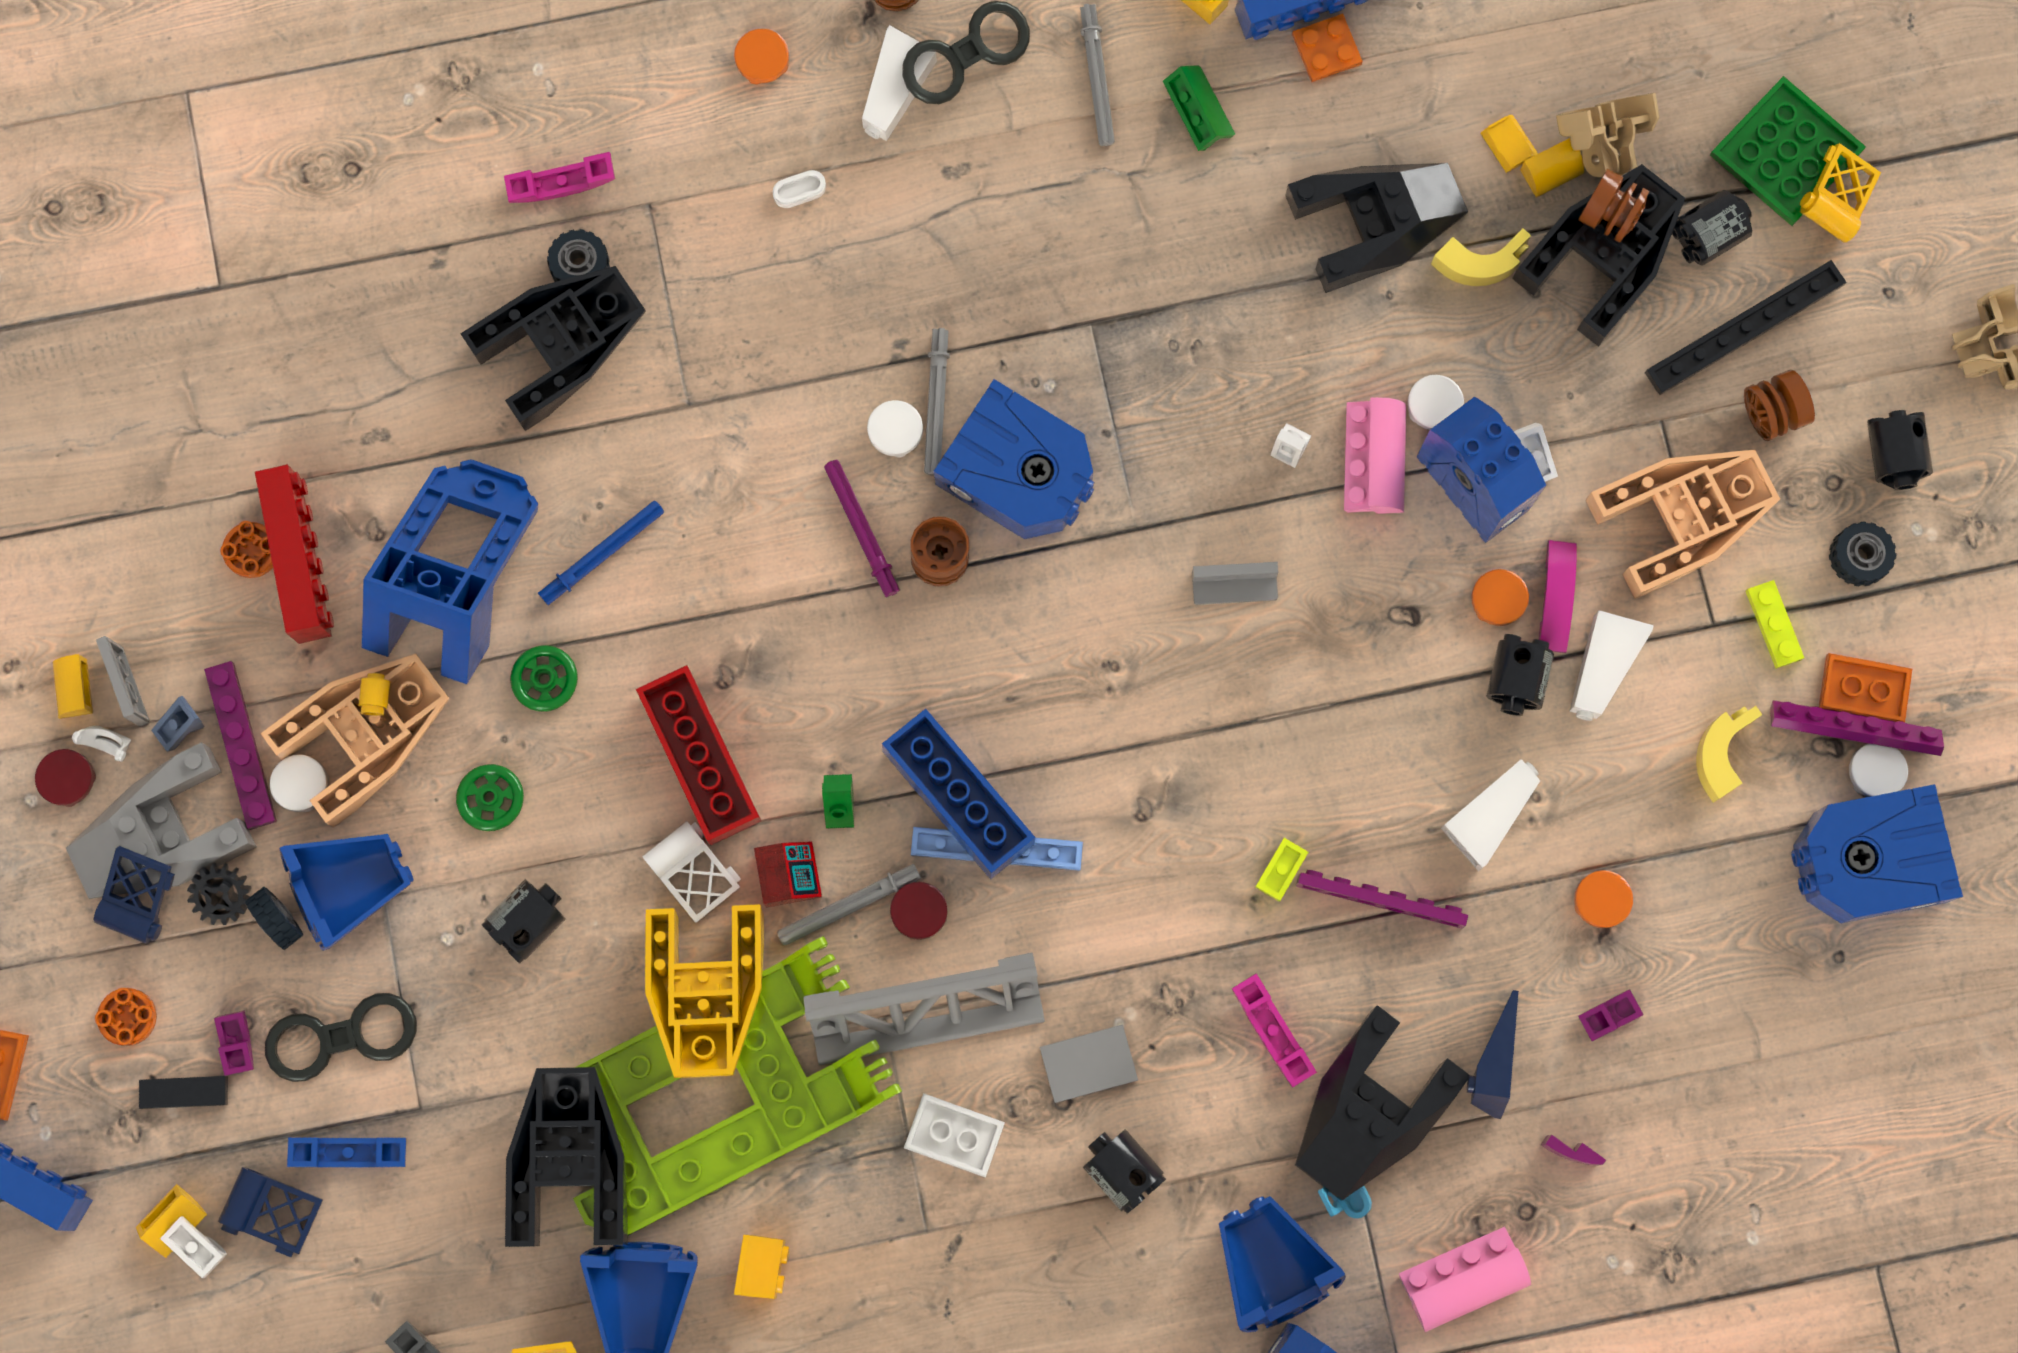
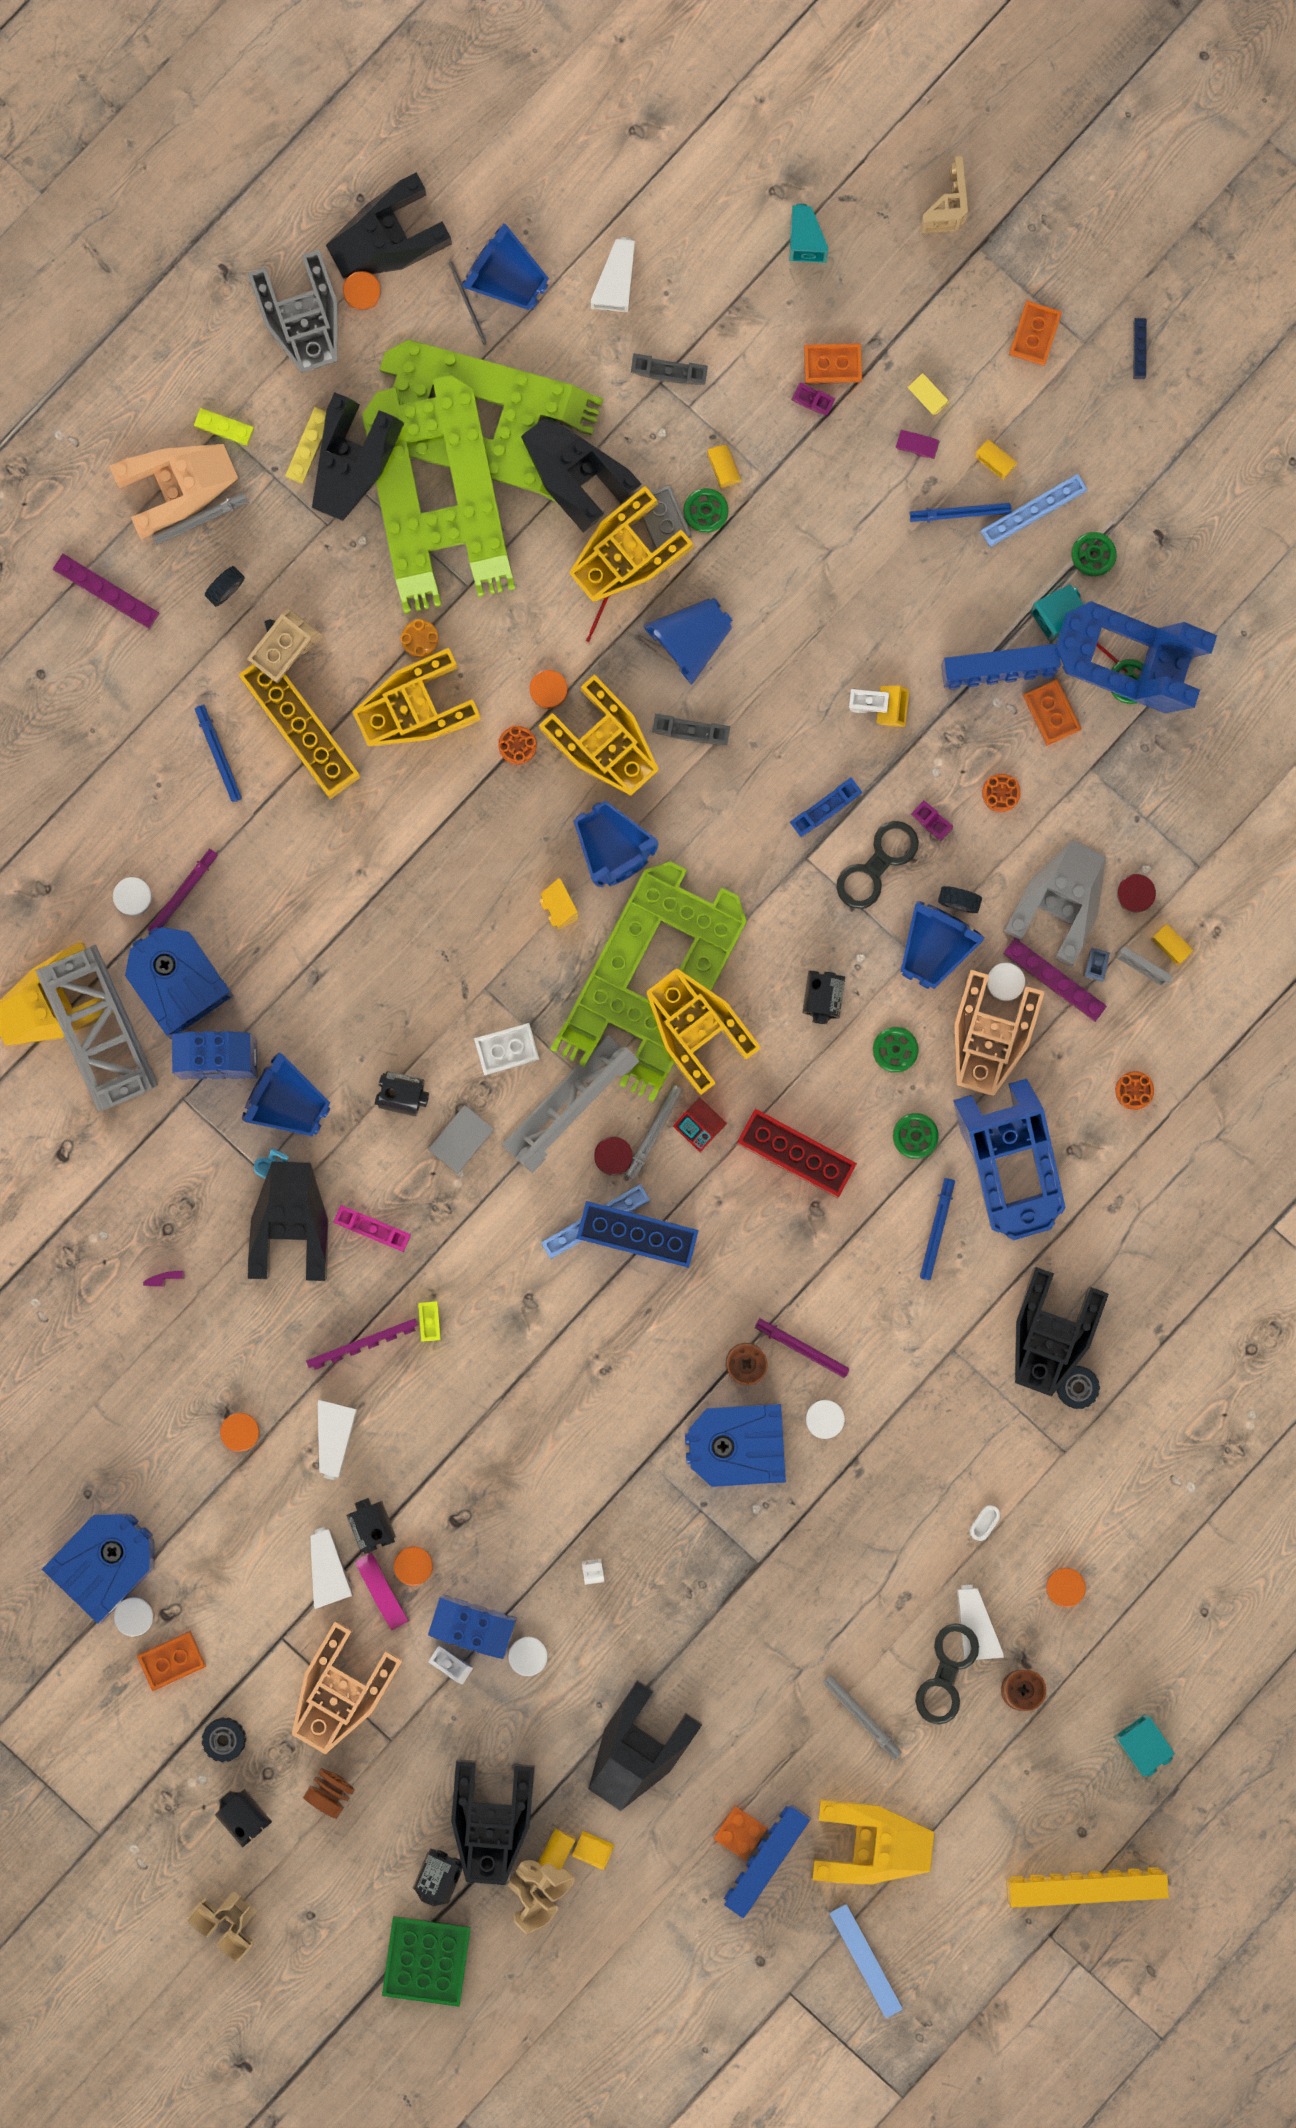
camera: 140 degrees right, 5 degrees up
(91, 737) = (1120, 930): white helmet -> none
(131, 916) = (1043, 844): dark blue piece -> none
(183, 1092) = (939, 775): black tile -> none
(208, 887) = (998, 890): black gear -> none
(247, 1201) = (858, 741): dark blue piece -> none
(293, 554) = (1105, 1103): red brick -> none
(374, 694) = (997, 1056): yellow brick -> none
(560, 181) = (1125, 1428): dark pink slope -> none
(565, 1141) = (708, 895): black wedge -> none
(675, 853) = (769, 1093): white piece -> none
(838, 801) = (701, 1184): green brick -> none
(936, 399) = (813, 1452): light grey axle -> none
(1198, 106) = (789, 1740): green panel -> none
(1235, 583) = (568, 1466): light grey panel -> none
(1375, 456) = (540, 1598): bright pink brick -> none
(1465, 1279) = (177, 1168): bright pink brick -> none
(1480, 270) = (565, 1751): light yellow arch -> none
(1493, 1075) = (236, 1288): dark blue wedge -> none
(1610, 1015) = (193, 1370): magenta slope -> none
(1614, 205) = (502, 1841): dark orange wheel -> none
(1712, 752) = (233, 1558): light yellow arch -> none
(1745, 327) = (379, 1831): black plate -> none
(1774, 624) = (247, 1662): neon yellow plate -> none
(1832, 212) = (373, 1938): yellow piece -> none
(1857, 728) = (161, 1632): magenta plate -> none

